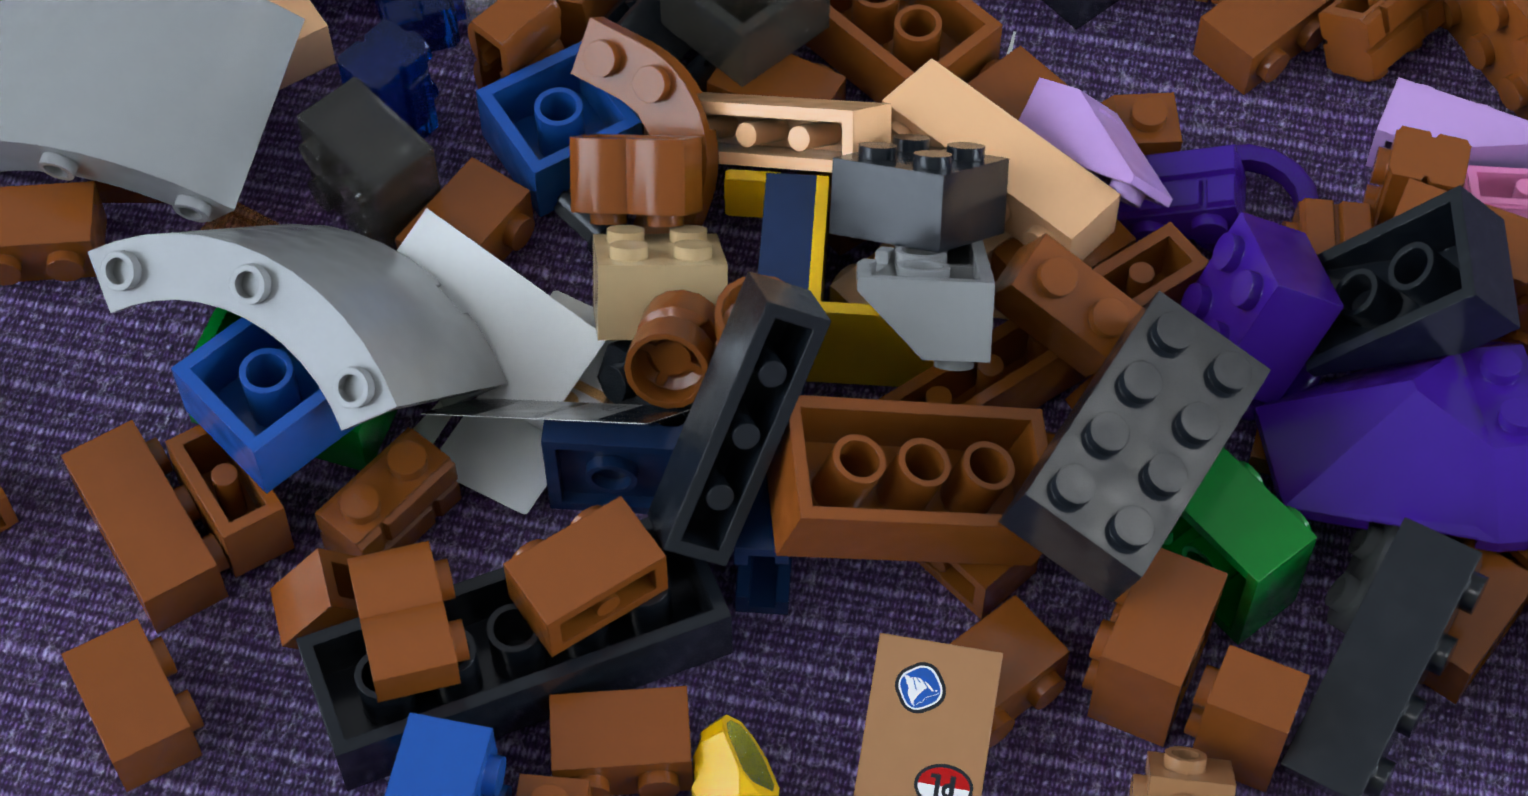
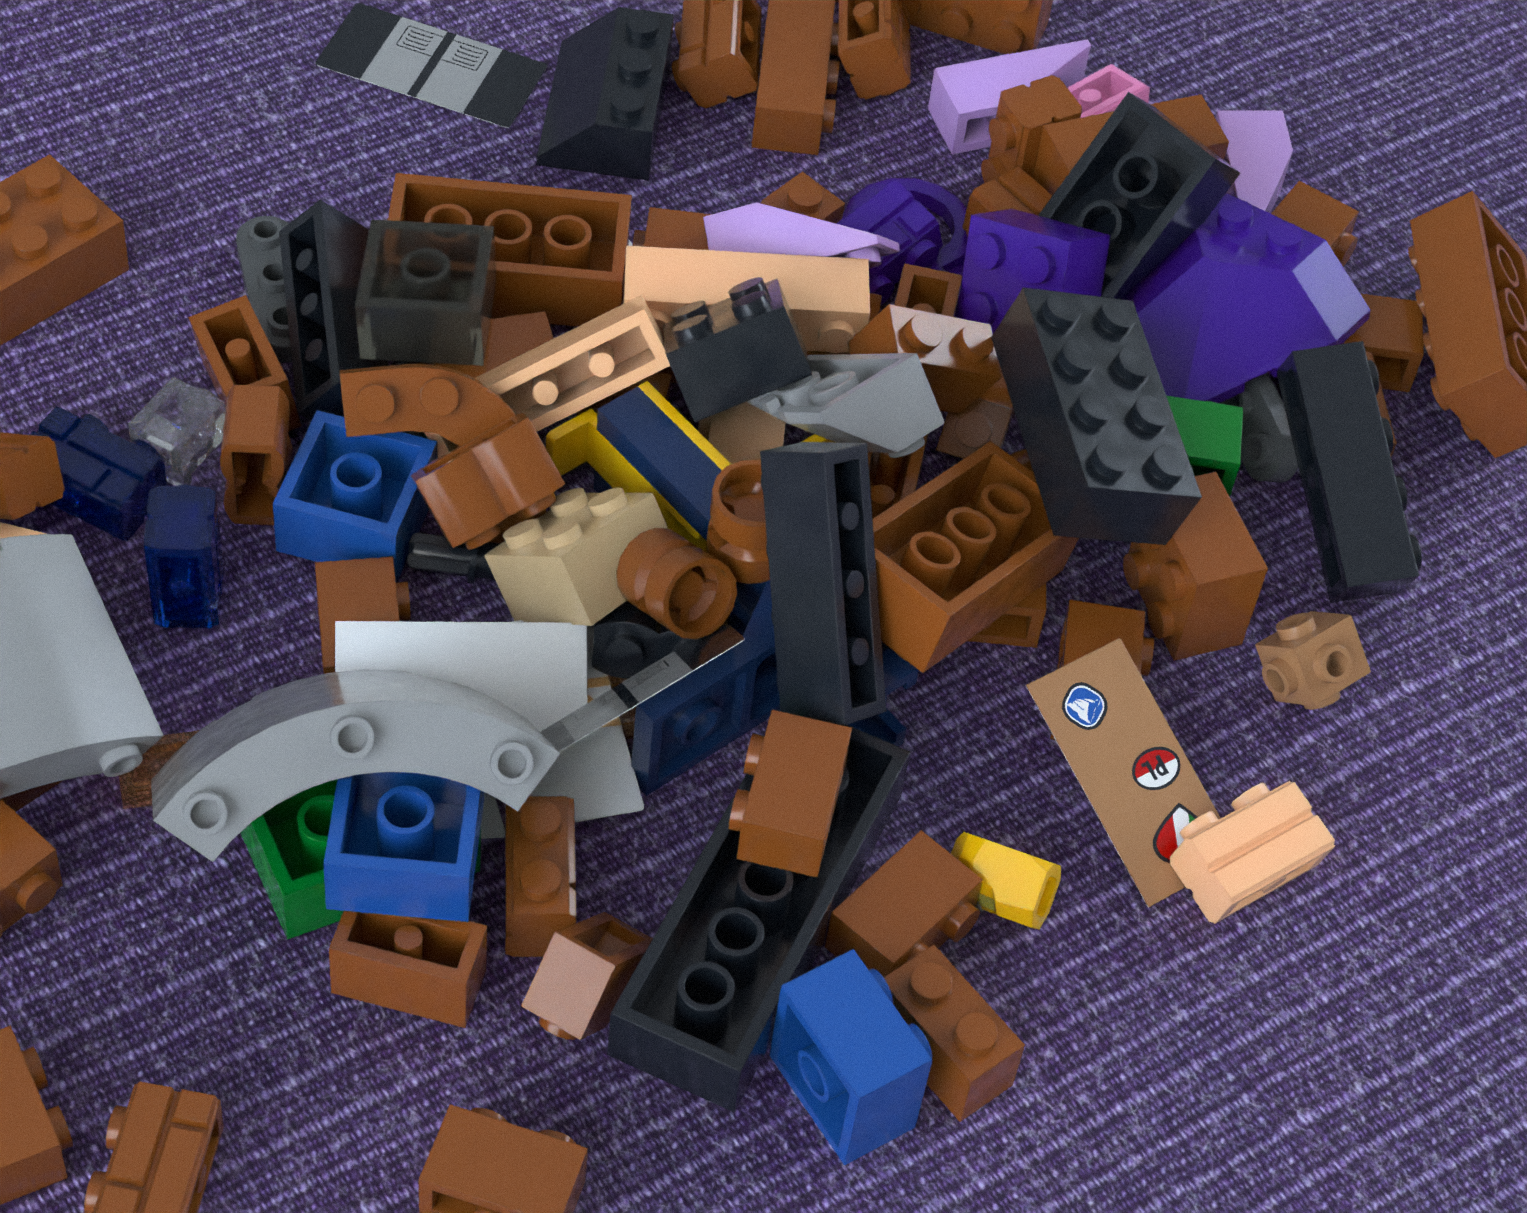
camera: 50 degrees left, 5 degrees down
(148, 524) = (352, 1039): dark orange brick -> none
(366, 162) = (238, 623): clear smoke brick -> none
(406, 622) = (697, 926): dark orange brick -> none
(1246, 713) = (1308, 564): dark orange brick -> none

